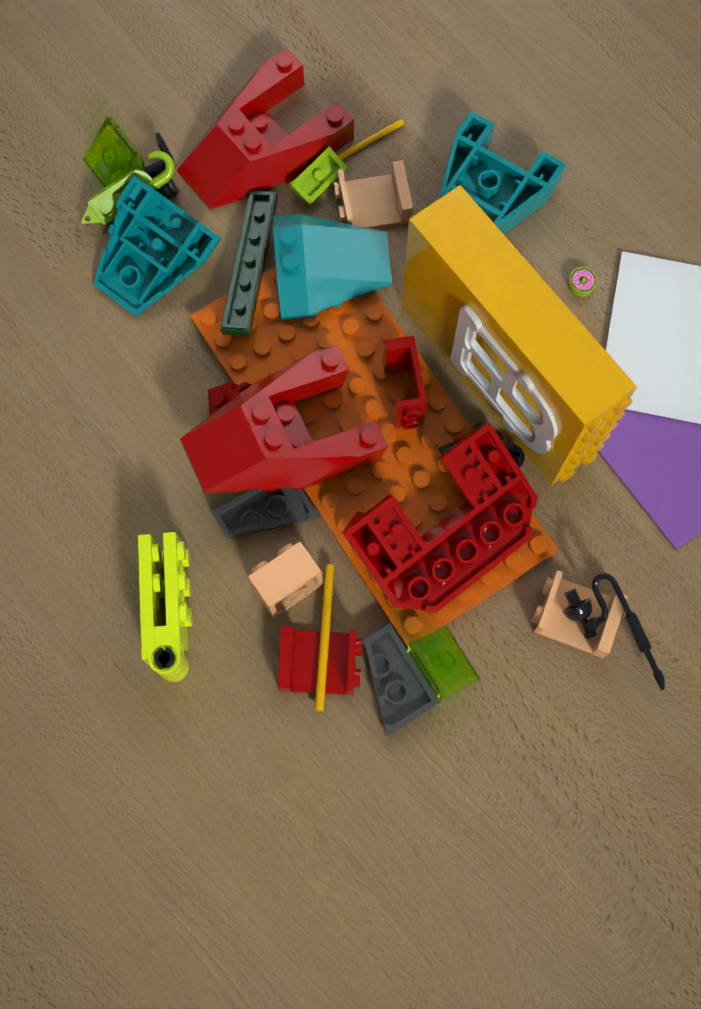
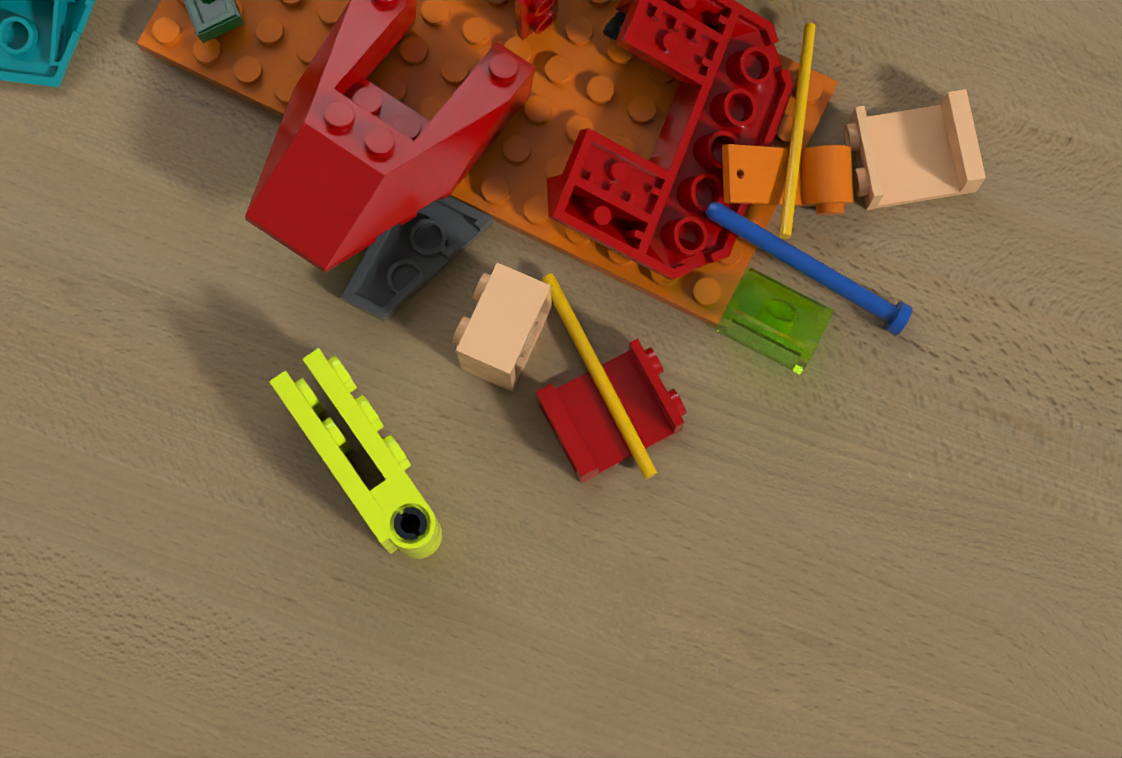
camera: 30 degrees left, 5 degrees up
(224, 393) = (258, 128): red plate -> none
(397, 680) = (729, 375): dark grey wing -> none
(496, 587) = (759, 176): none -> orange door
(511, 701) = (894, 315): none -> blue bar
(516, 564) = (797, 131): none -> yellow axle
(581, 609) = (914, 143): black piece -> none

